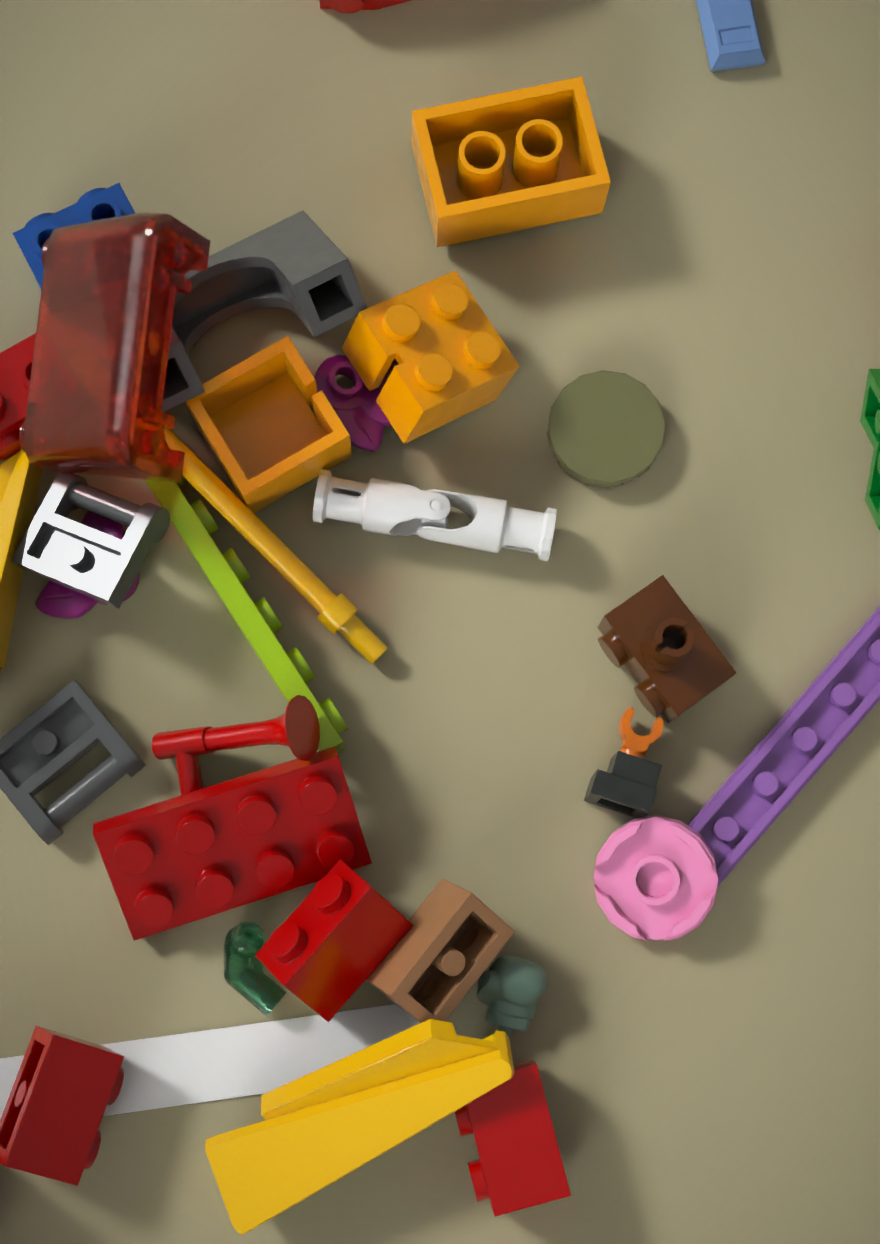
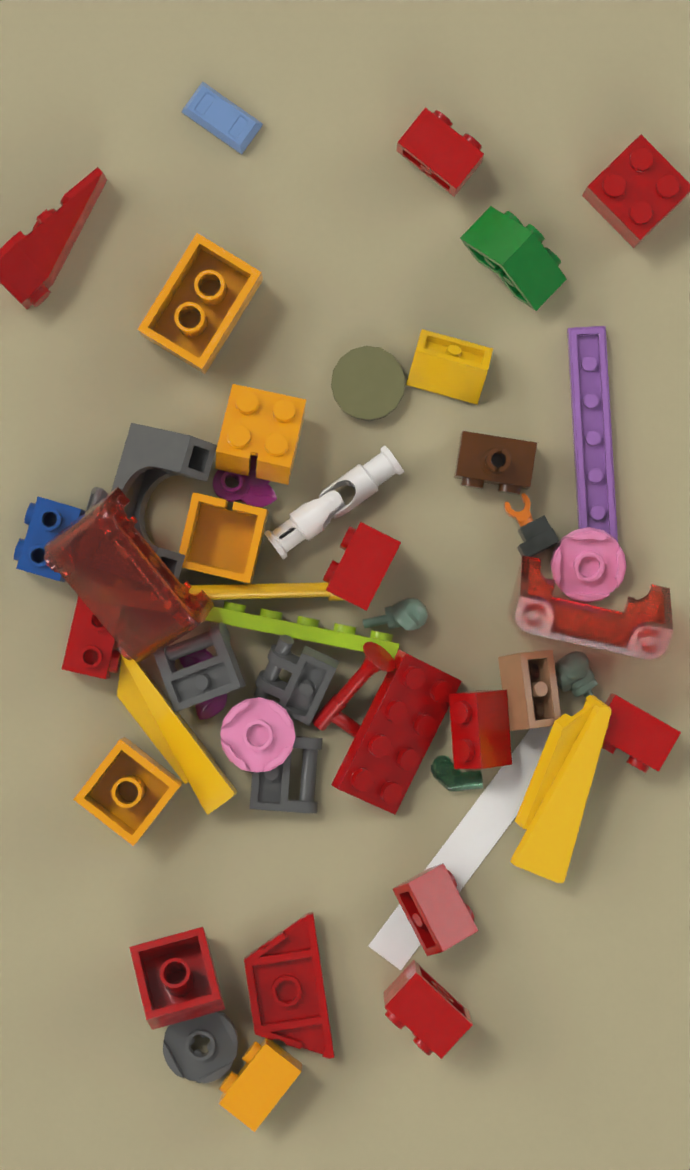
camera: 40 degrees left, 10 degrees up
(74, 682) = (257, 735): none -> bright pink tile
(193, 680) = (308, 681): none -> dark grey plate
(387, 720) = (408, 613): none -> sand green piece
(393, 605) = (362, 565): none -> red brick
(636, 1016) = (637, 632): none -> clear red windscreen
(715, 498) = (449, 366): none -> yellow panel

